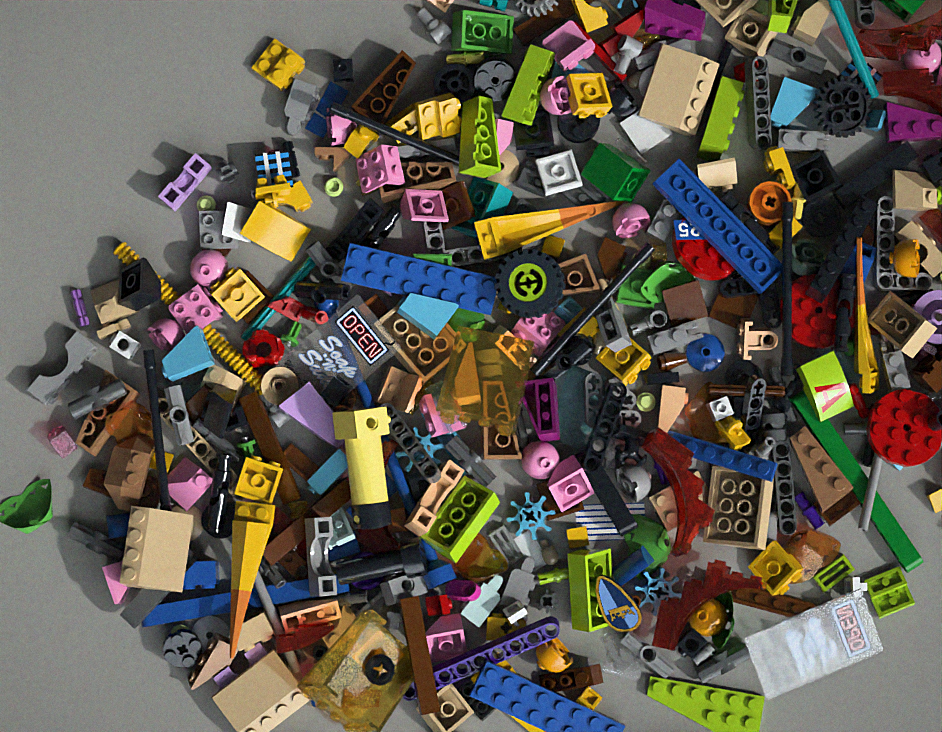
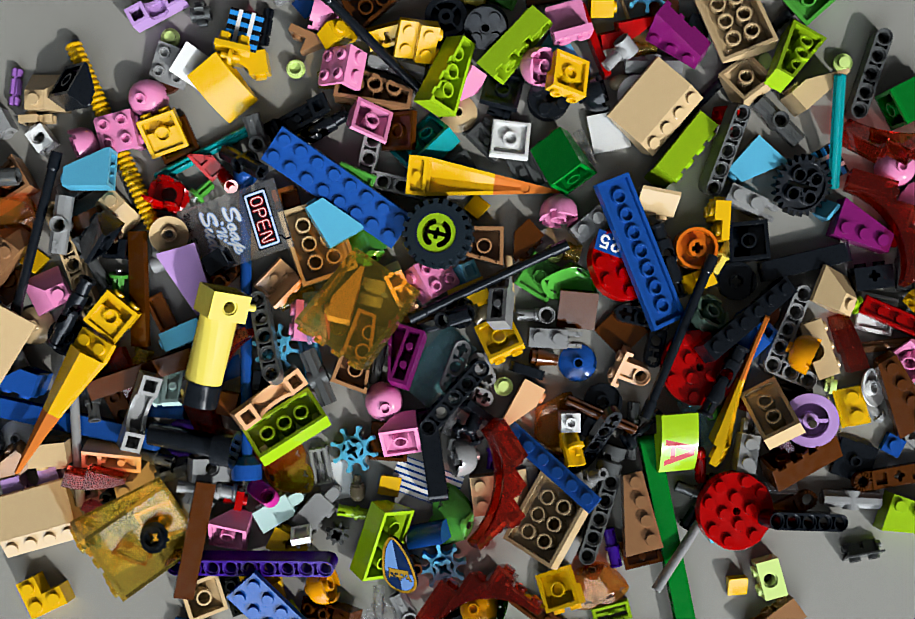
camera: 25 degrees right, 5 degrees up
(426, 603) = (221, 490): none -> light grey pin

